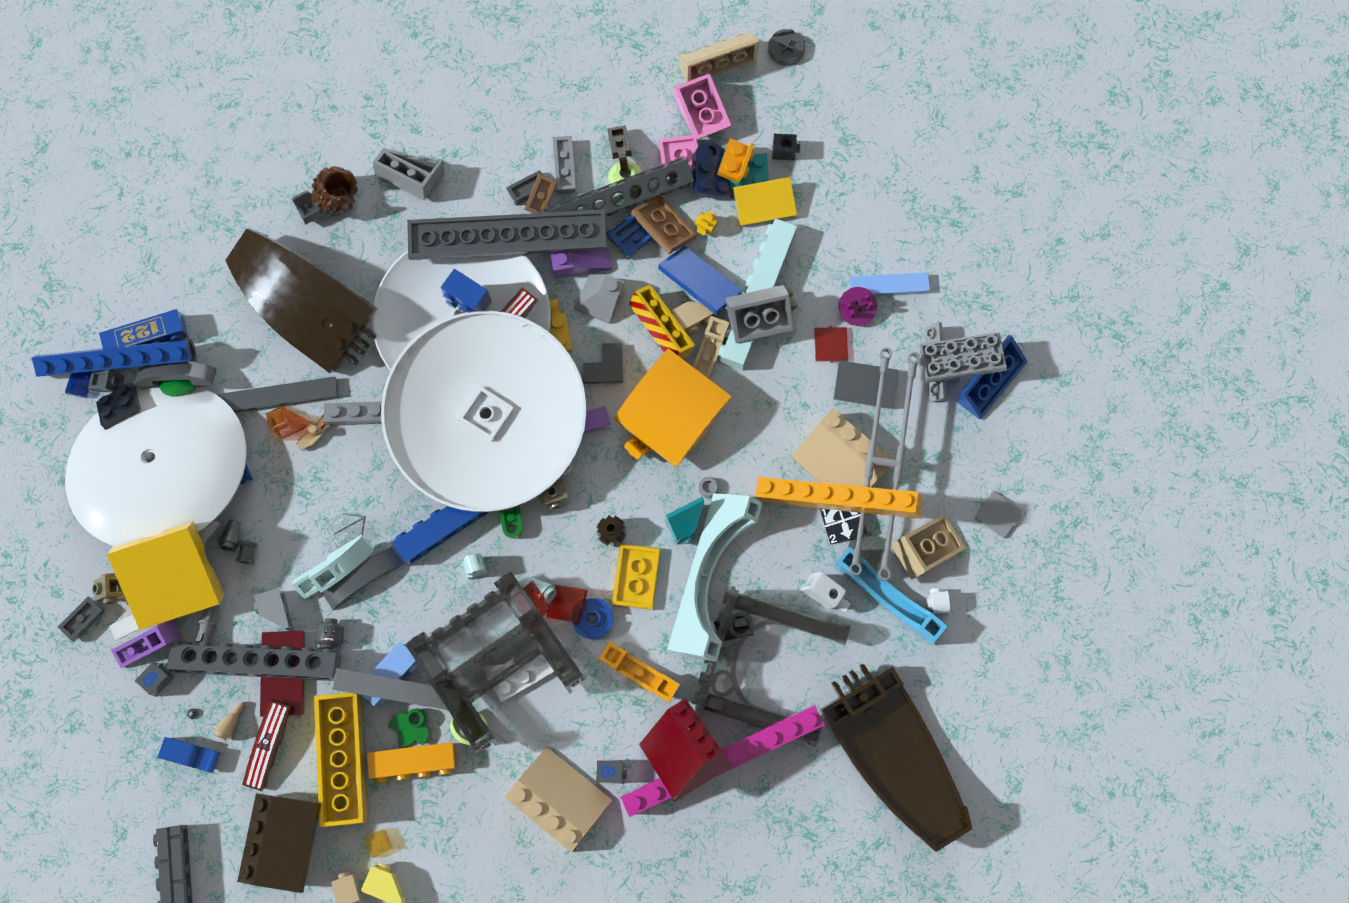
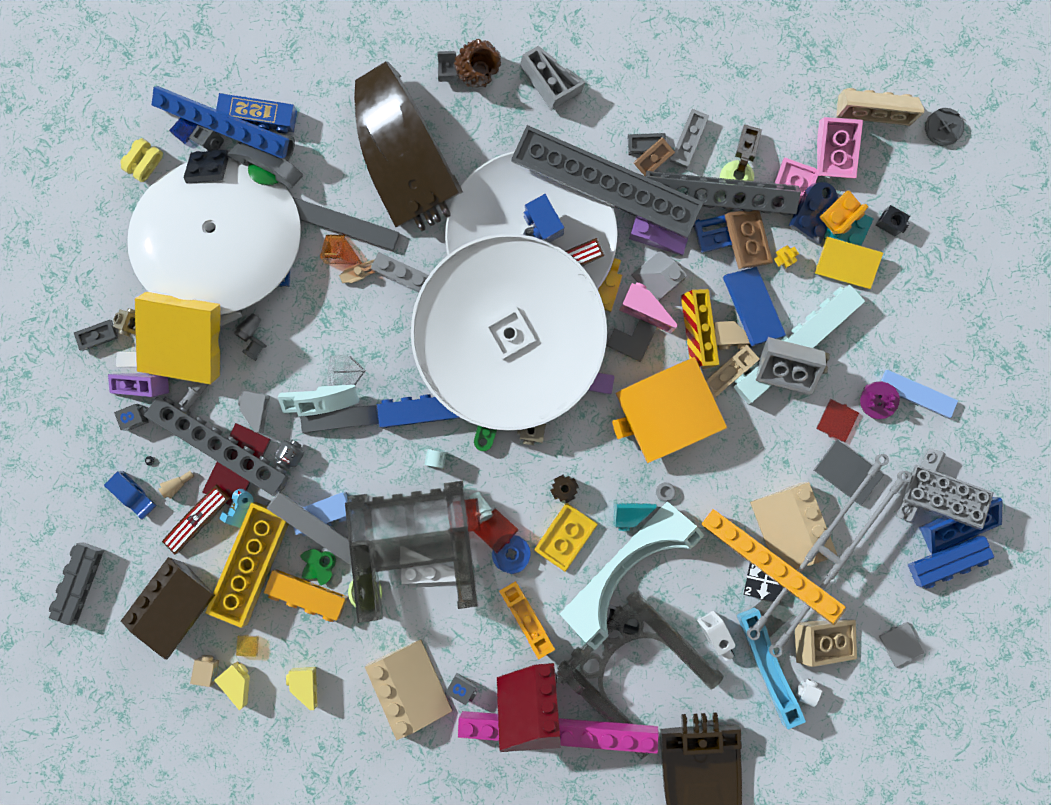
camera: 30 degrees right, 10 degrees up
(50, 431) = (141, 160): none -> light yellow brick
(304, 710) = (240, 504): none -> medium azure leg
(453, 850) = (303, 685): none -> light yellow slope
(599, 328) = (644, 306): none -> bright pink slope
(1000, 414) = (951, 561): none -> blue brick

